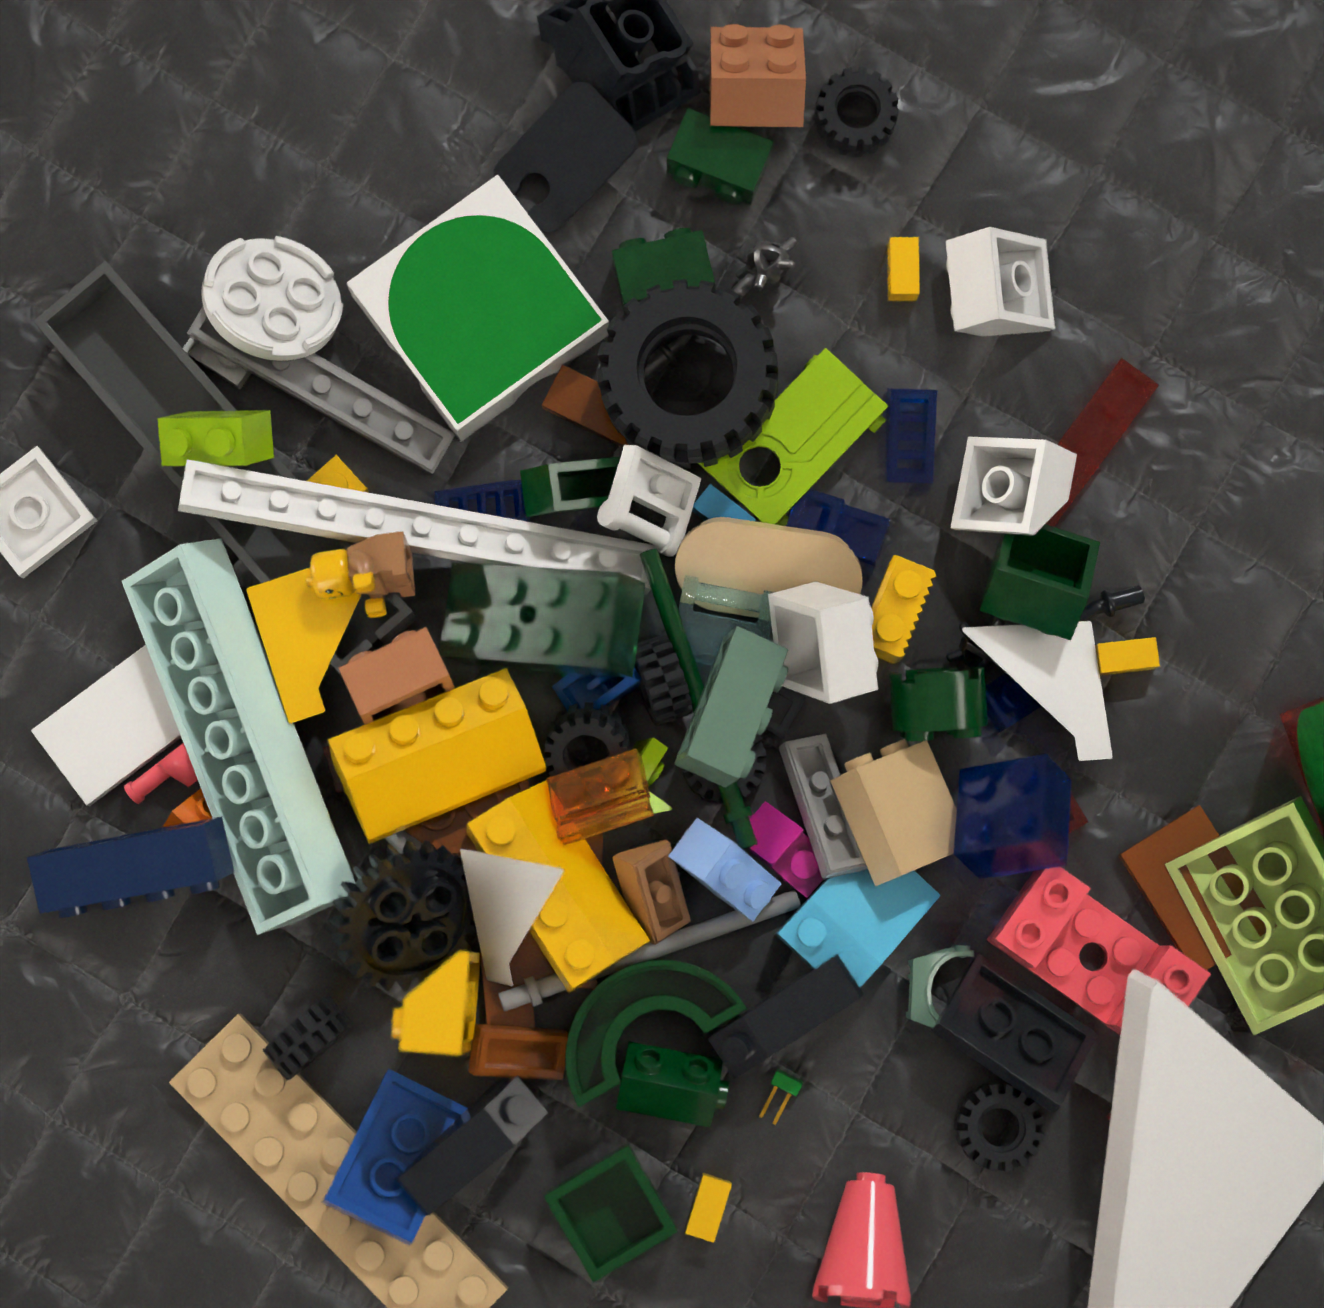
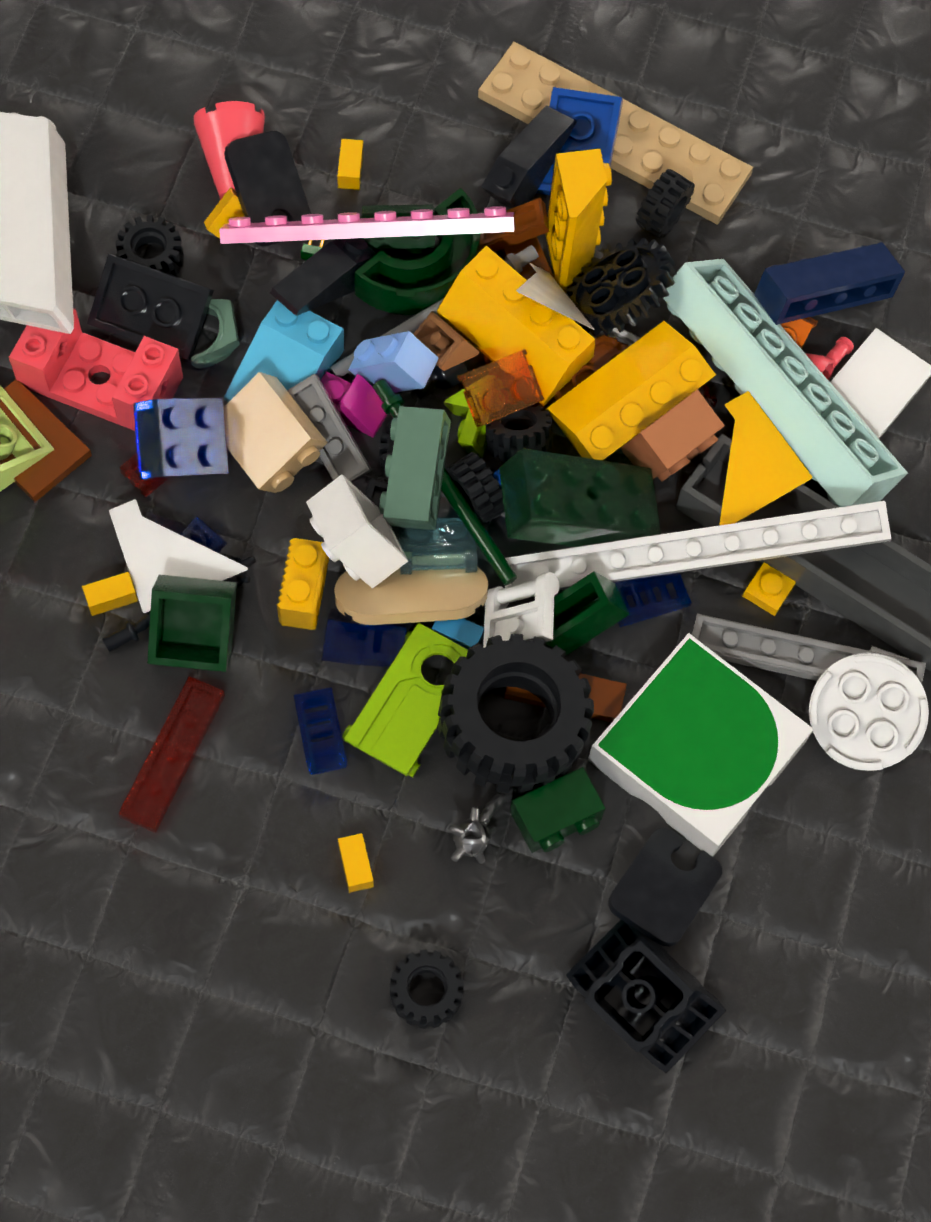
camera: 165 degrees right, 15 degrees down
(216, 437) = (874, 573): lime brick -> none
(370, 567) = (726, 495): piece -> none
(610, 1212) = (419, 139): dark green piece -> none
(717, 1062) = (383, 224): none -> bright pink plate
(718, 158) = (536, 918): dark green piece -> none
(757, 76) = (522, 985): nougat piece -> none
(830, 1185) = (266, 178): none -> black piece
(889, 1152) = (226, 208): none -> yellow piece
(938, 702) = (255, 516): dark green brick -> none
(999, 283) = (269, 864): white slope -> none
(1011, 485) = (228, 686): white slope -> none

